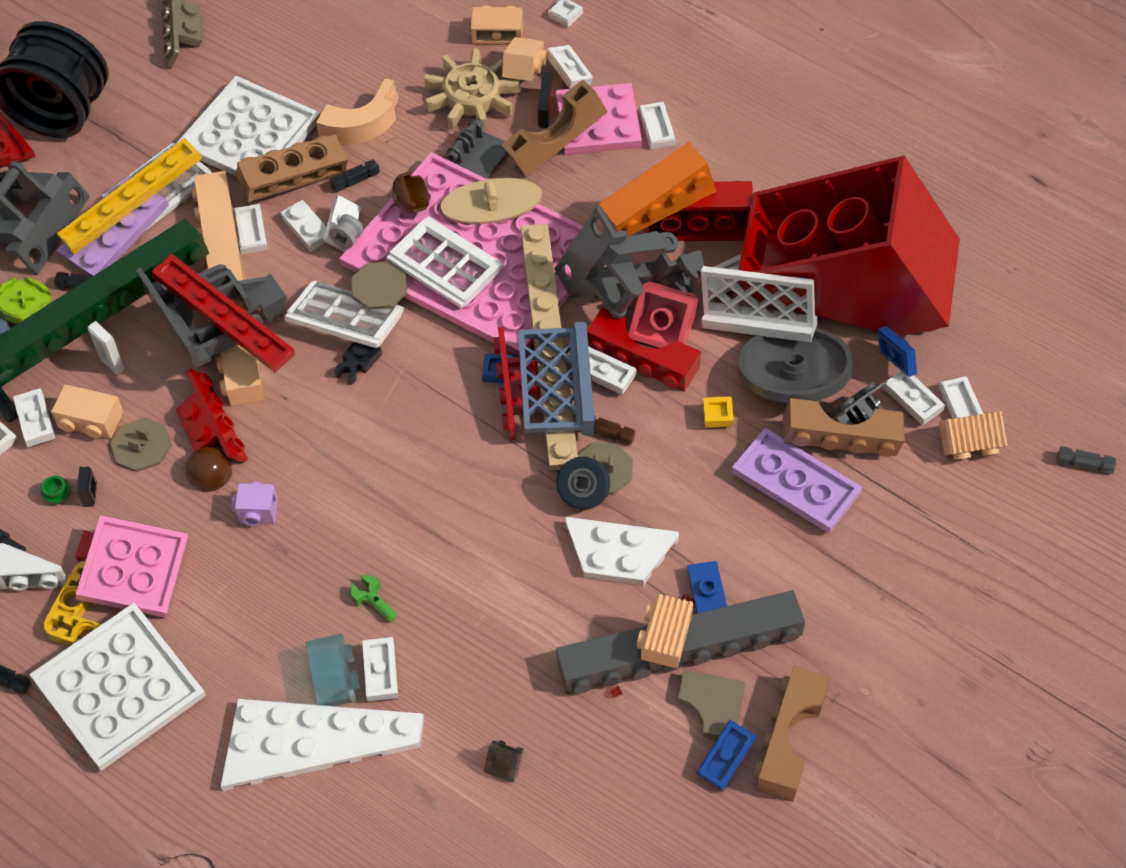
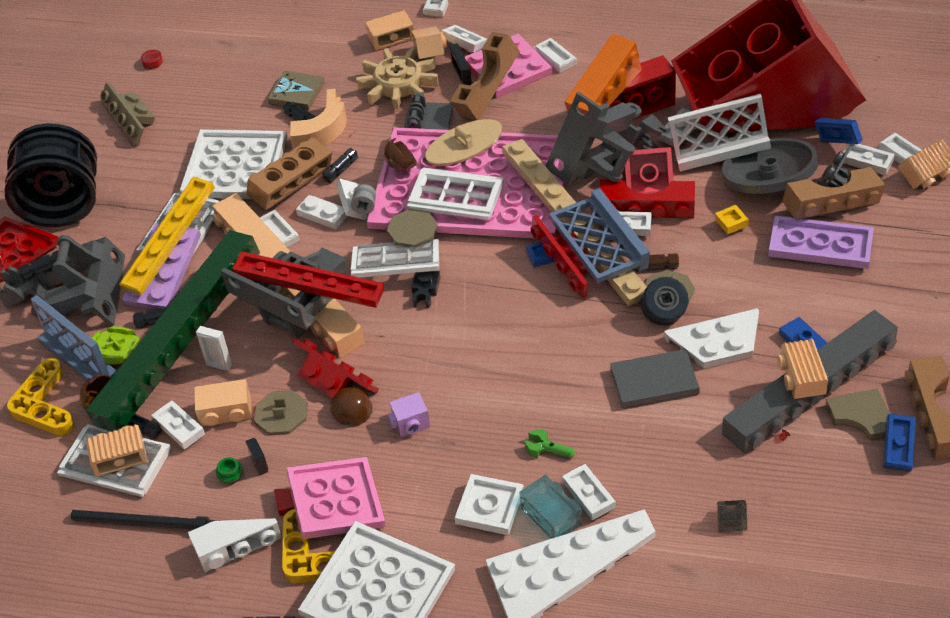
camera: 20 degrees left, 10 degrees down
(276, 639) = (489, 504): none -> white plate
(347, 93) = (297, 112): none -> black axle
(361, 63) = (296, 88): none -> dark tan tile
(524, 567) = (654, 378): none -> dark grey tile

